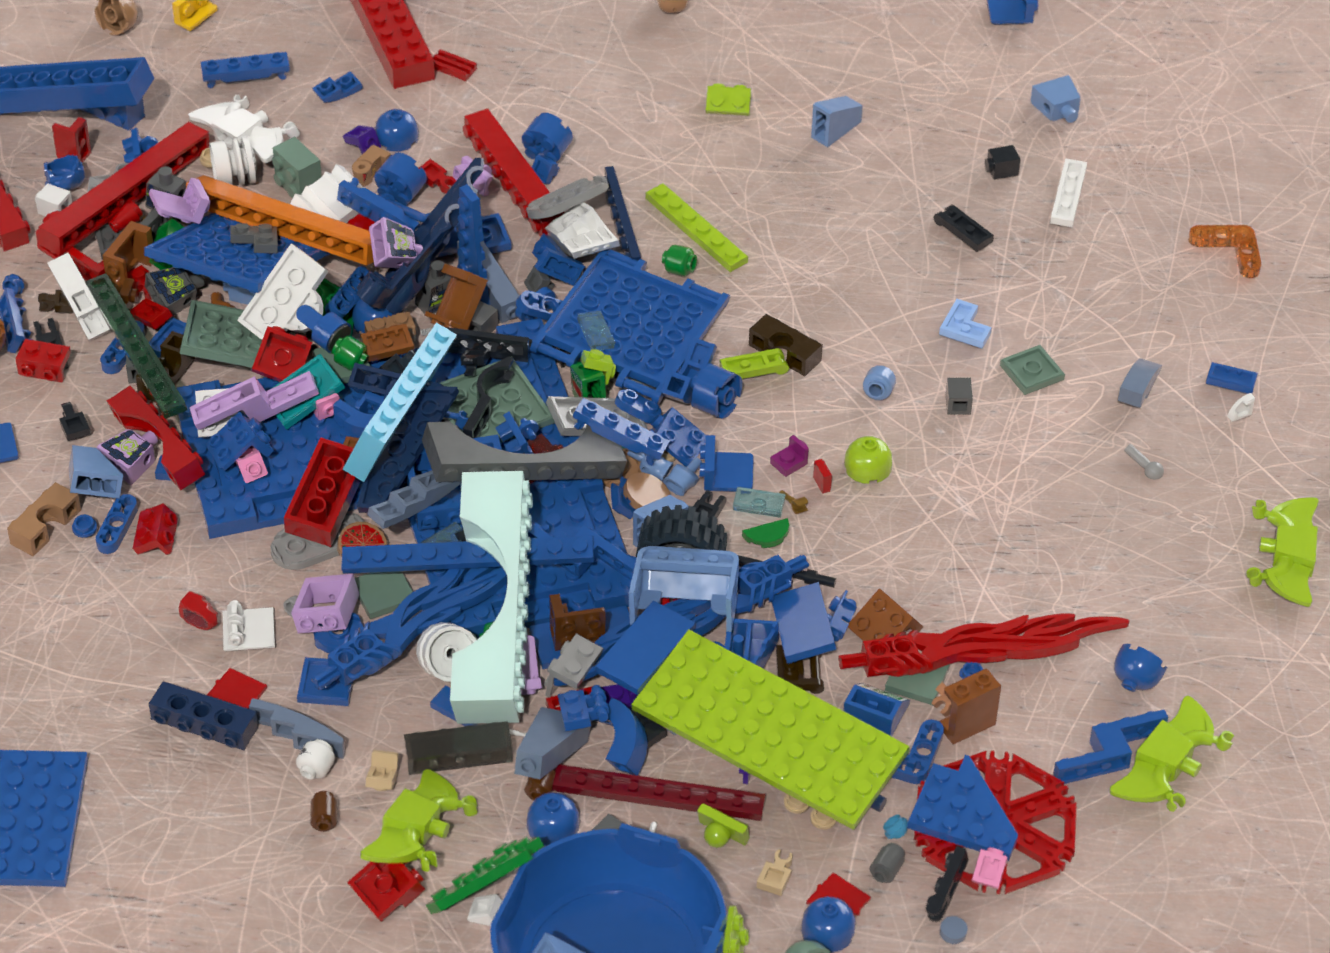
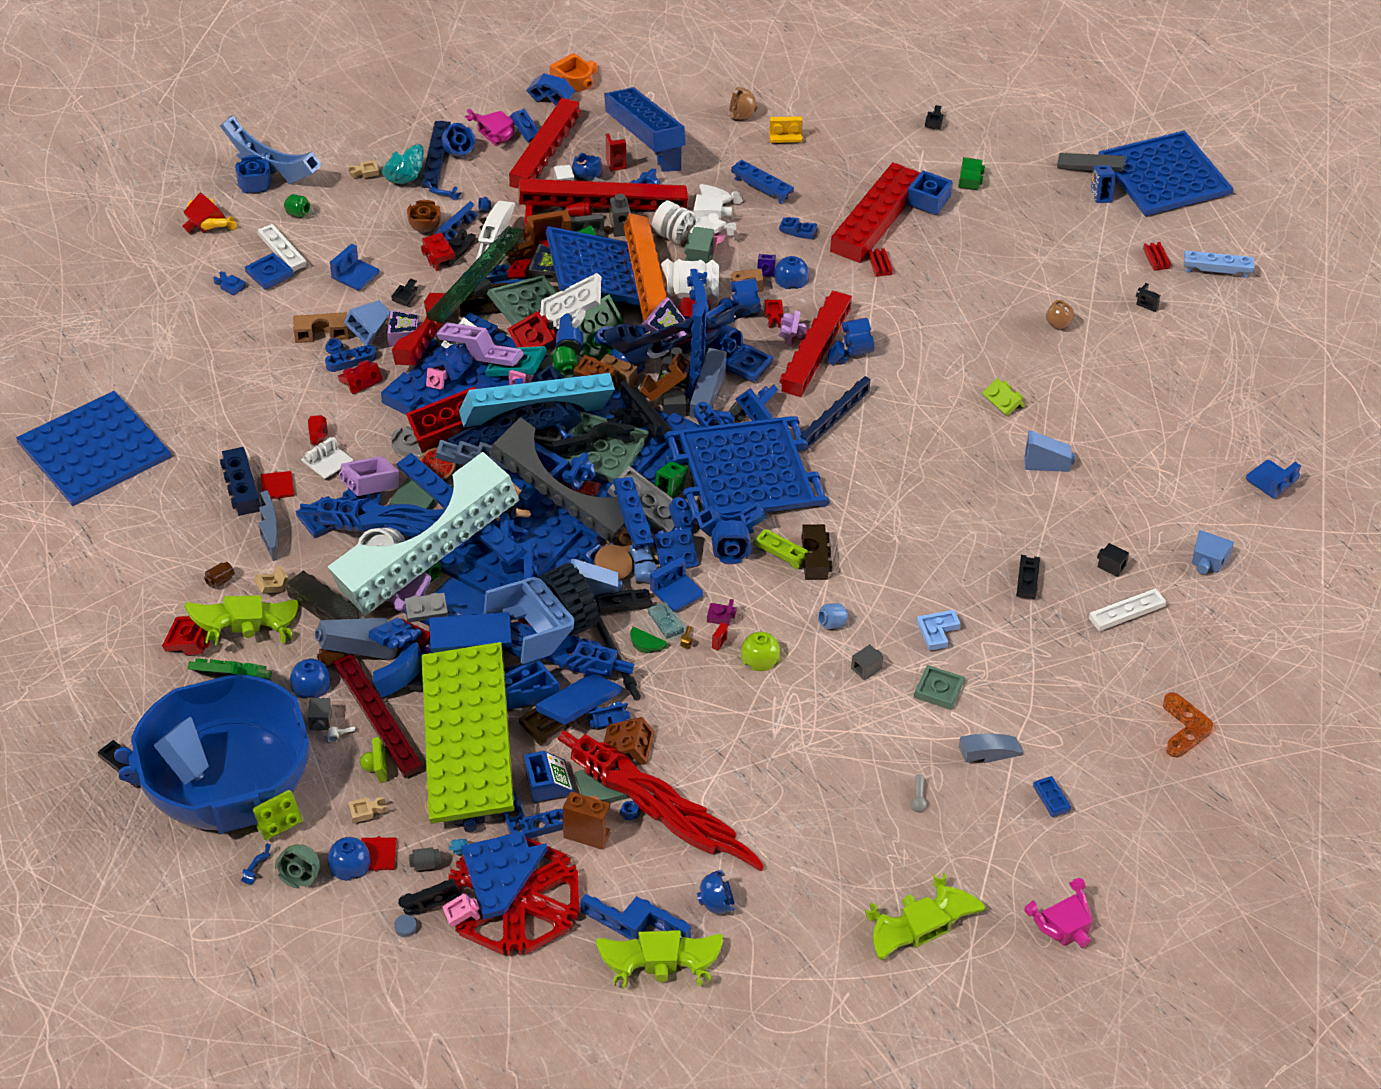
camera: 50 degrees right, 0 degrees up
(187, 208) = (604, 220): lavender bracket -> none
(262, 236) = (615, 266): dark grey plate -> none
(315, 759) = (252, 546): white head -> none
(565, 624) = (454, 589): reddish brown bracket -> none
(566, 197) = (809, 372): light grey tile -> none
(581, 232) = (791, 399): white slope -> none
(596, 330) = (710, 454): clear light blue plate -> none
(599, 361) = (683, 471): lime bracket -> none
(679, 260) = (829, 459): green head -> none
(696, 227) = (873, 452): lime plate -> none
(1242, 408) = (1028, 817): white tile -> none

